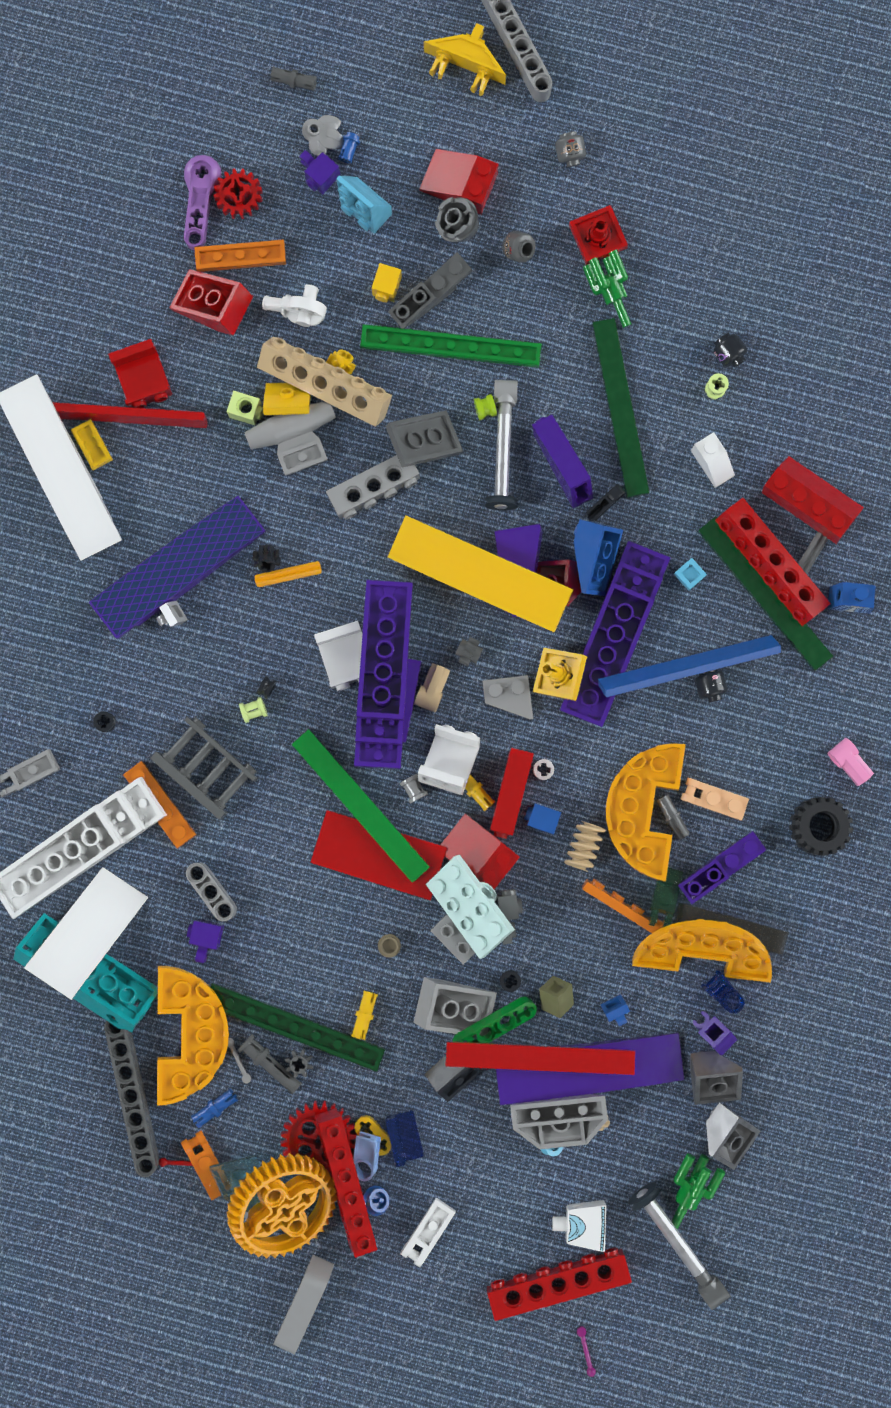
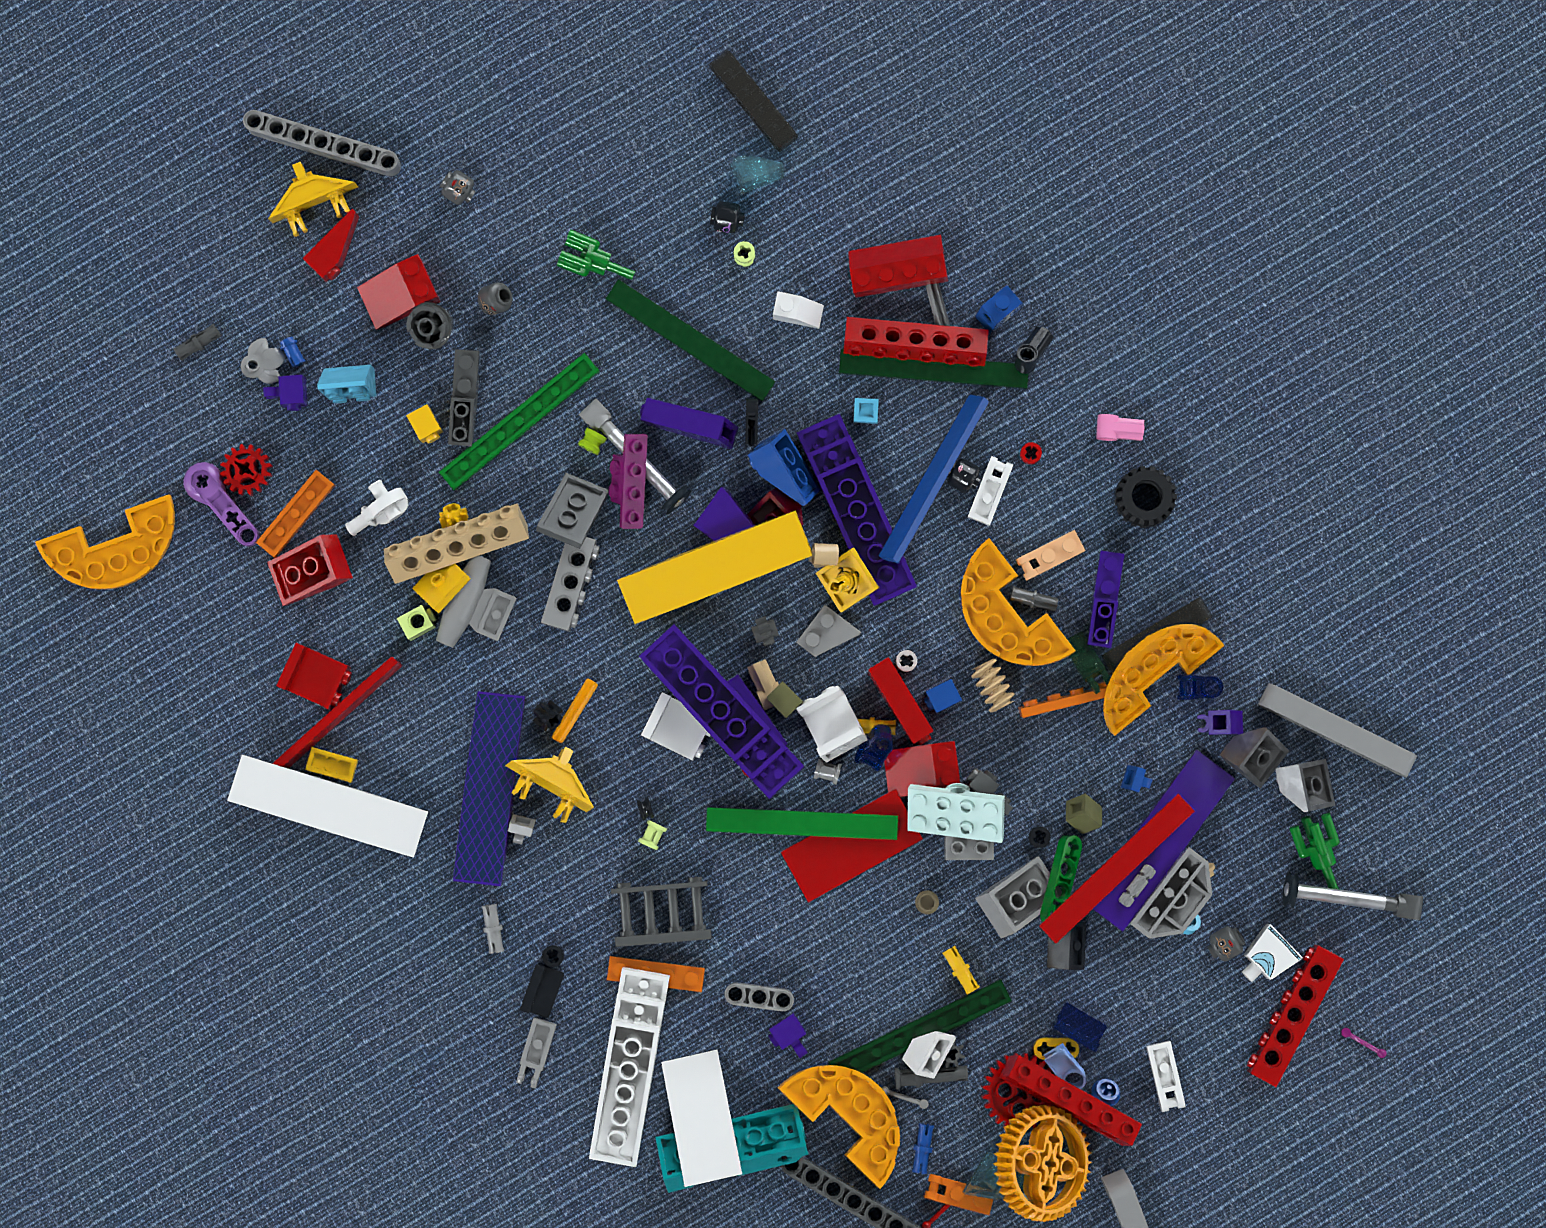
camera: 40 degrees left, 0 degrees up
(73, 736) = (542, 990): none -> black panel
(84, 662) = (492, 928): none -> light grey pin
(94, 168) = (117, 560): none -> light orange plate
(229, 604) = (555, 776): none -> yellow connector
(282, 1049) = (928, 1053): none -> white slope
(434, 710) = (784, 699): none -> olive panel
(444, 106) = (330, 252): none -> red slope
(459, 807) = (875, 751): none -> clear blue piece
(483, 457) = (629, 480): none -> magenta bracket
(542, 1084) = (1137, 885): none -> light grey axle
(561, 640) = (824, 555): none -> tan piece
(562, 1186) = (1226, 943): none -> dark grey head
(595, 227) = (537, 216): red plate -> none
(717, 714) = (990, 491): none -> white plate
(776, 722) = (1023, 452): none -> red bush
(781, 339) = (755, 172): none -> clear light blue slope
(789, 1121) = (1337, 730): none -> light grey beam
(828, 291) = (753, 101): none -> clear smoke beam
(846, 648) = (1032, 349): none -> black piece

